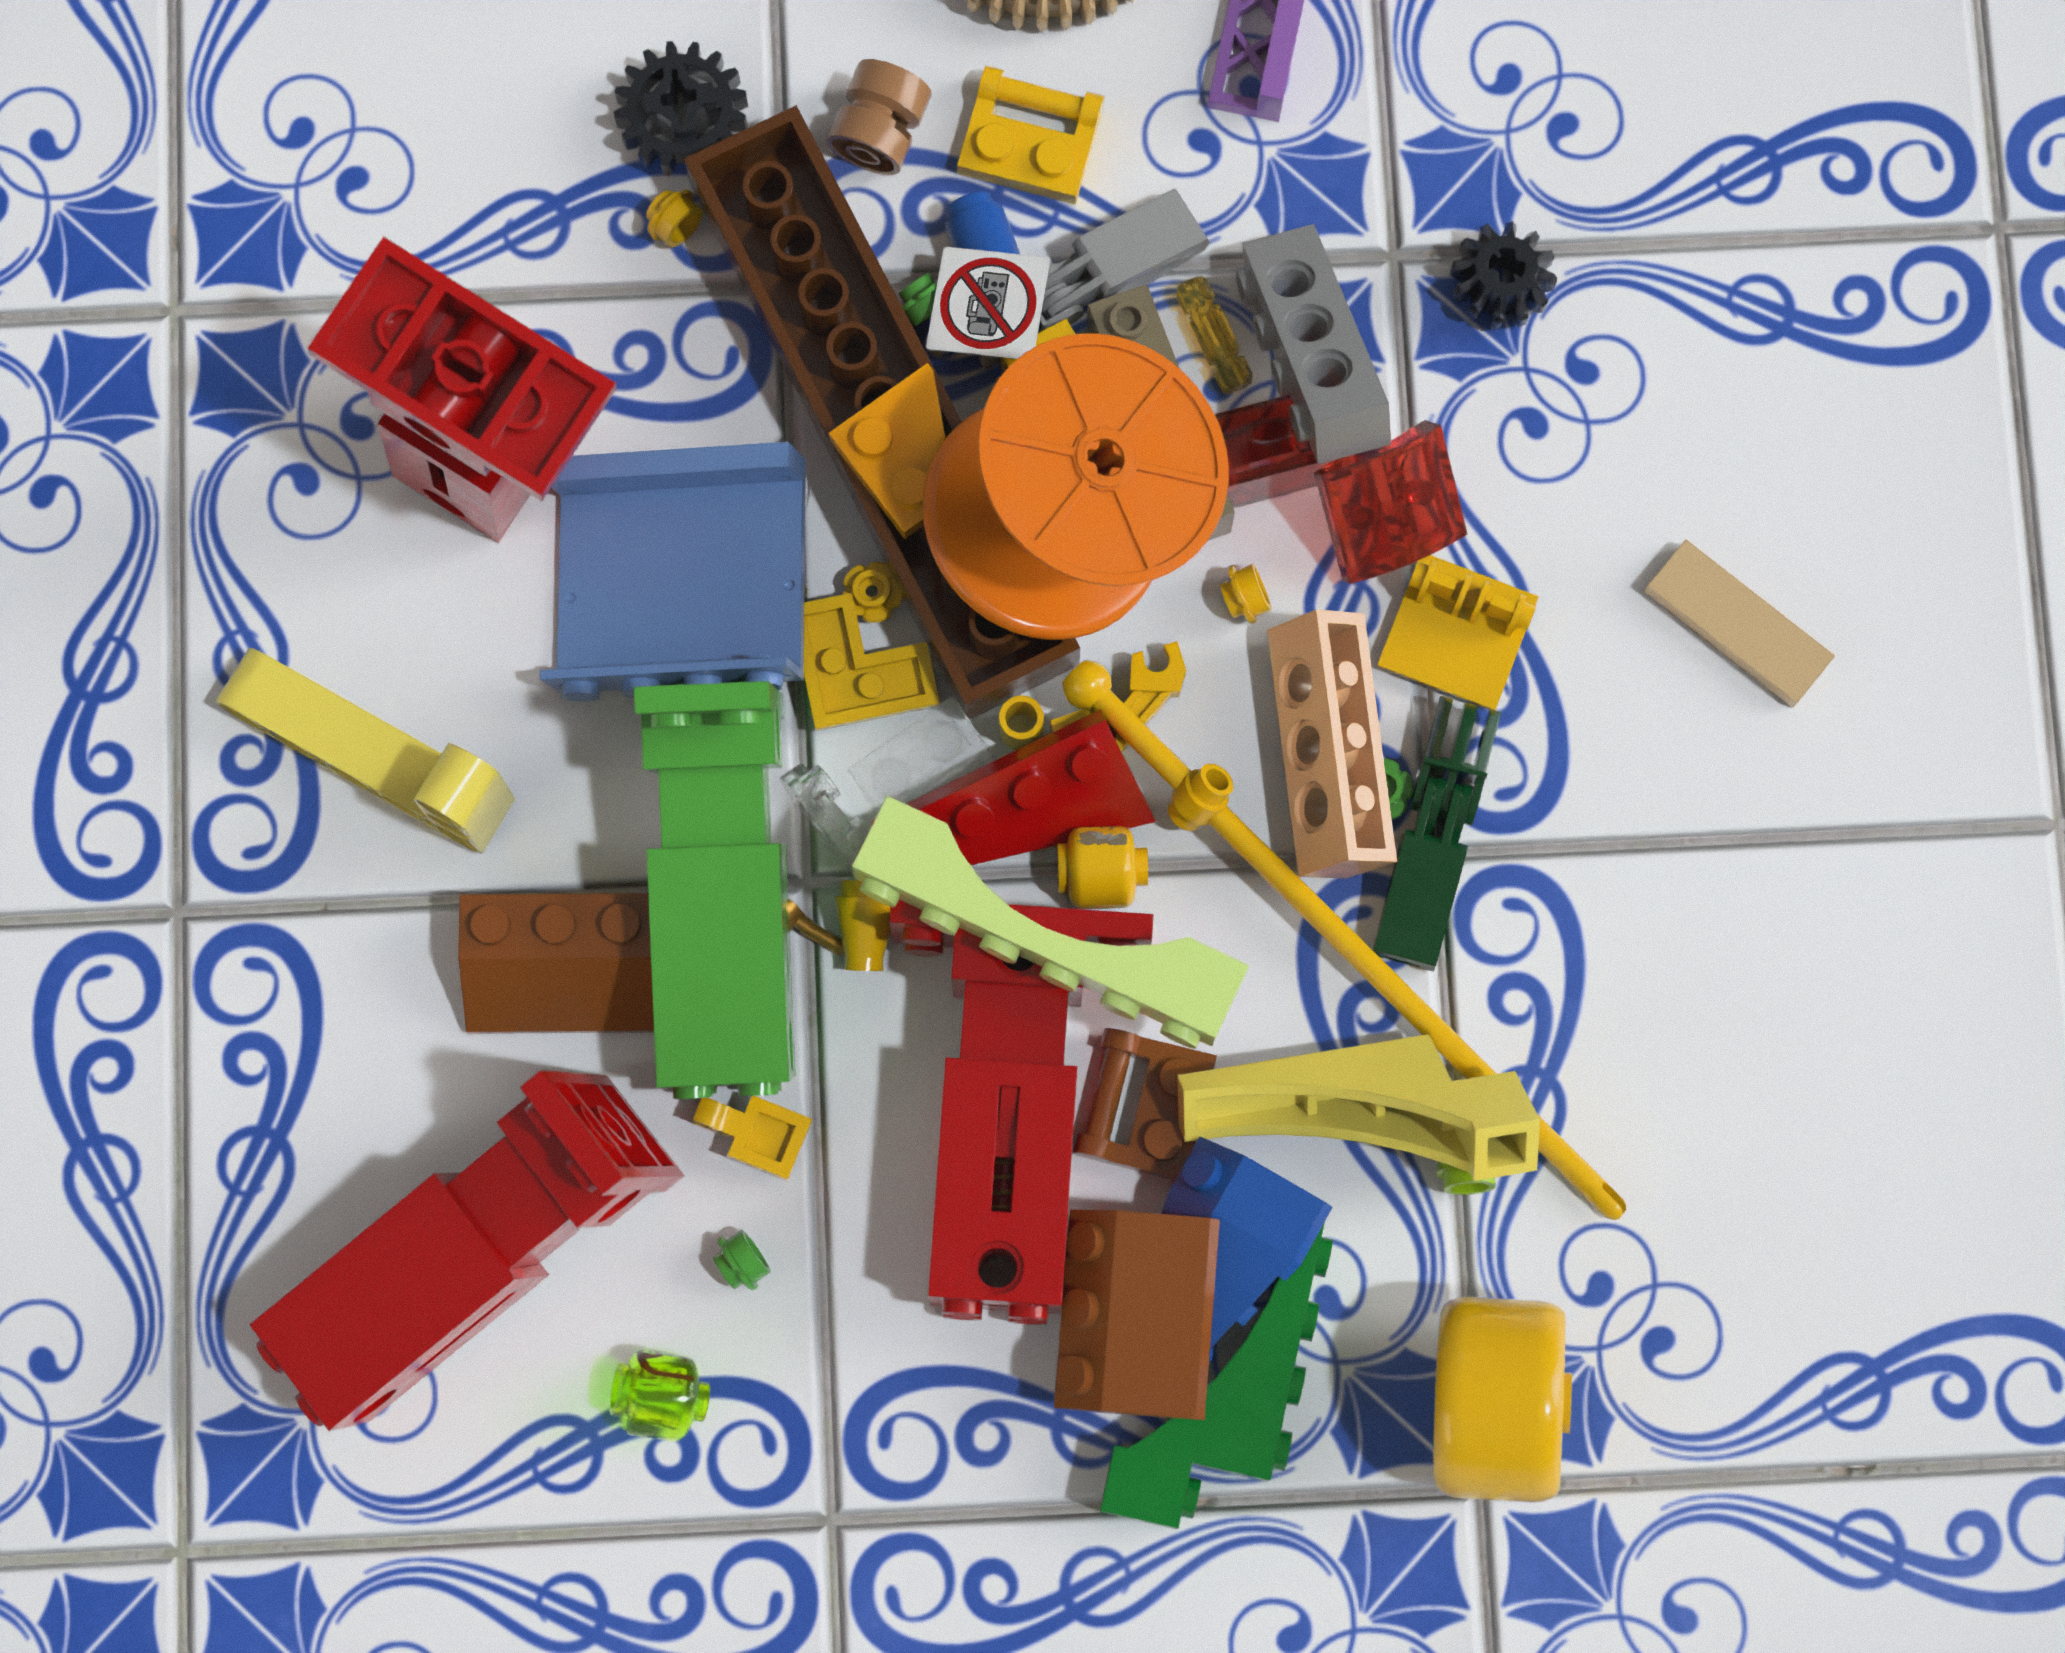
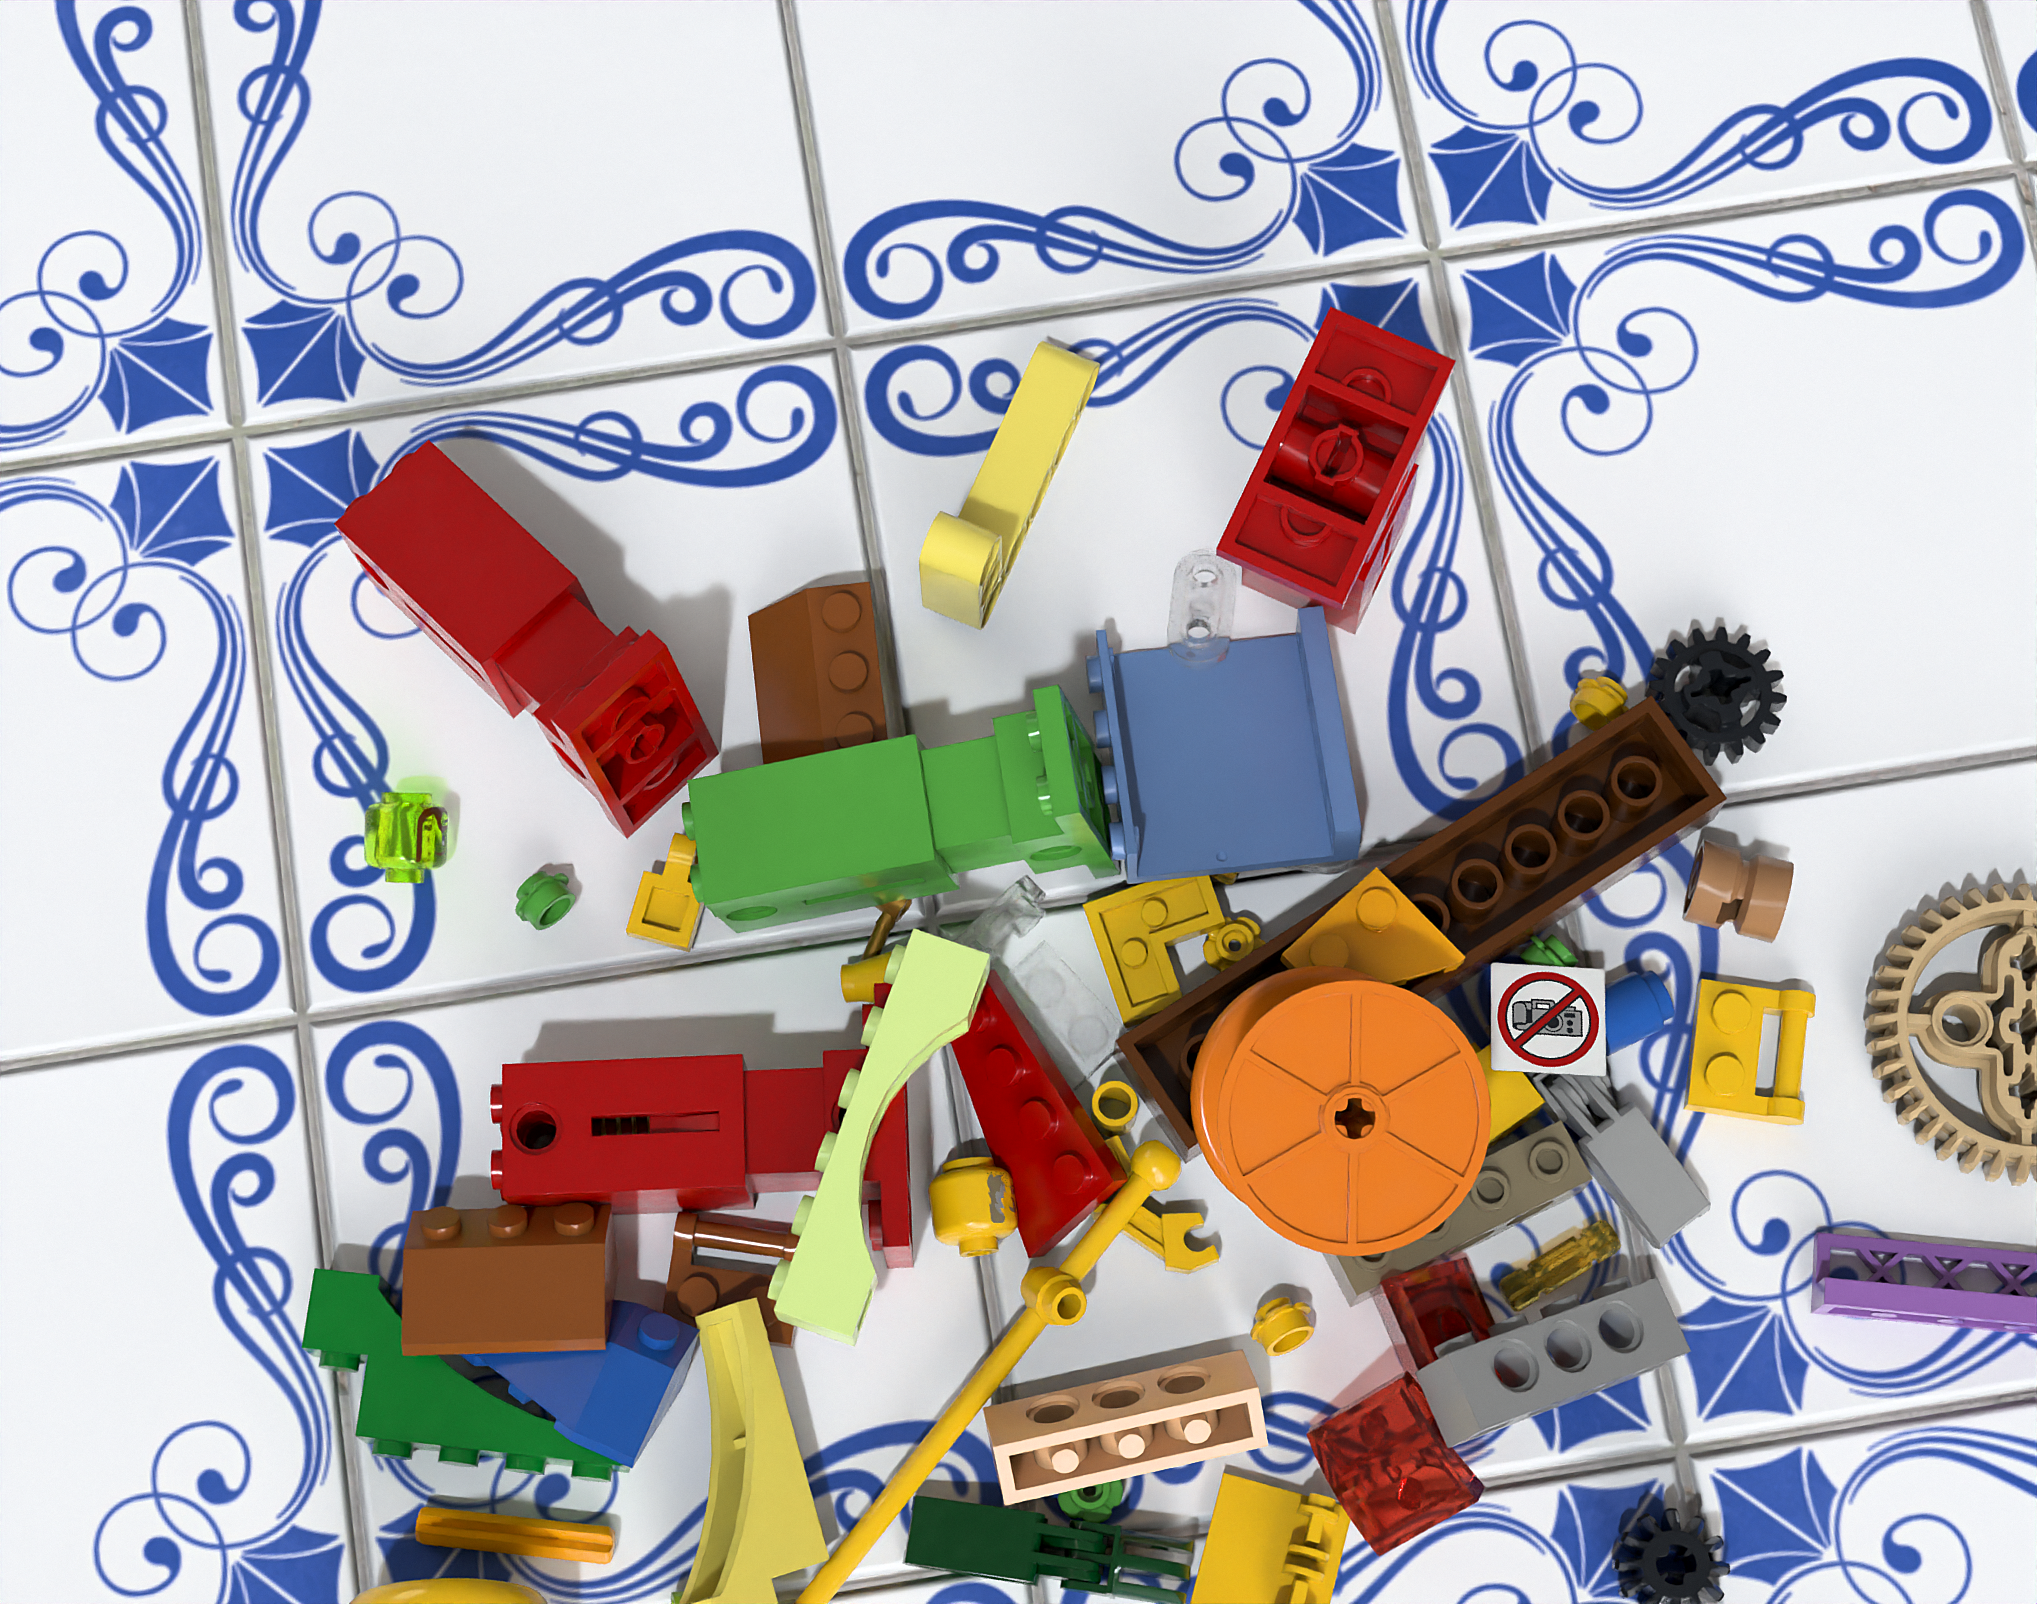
camera: 85 degrees right, 5 degrees down
(521, 580) = (1204, 606): none -> clear plate
(1372, 1338) = (515, 1535): none -> light orange axle

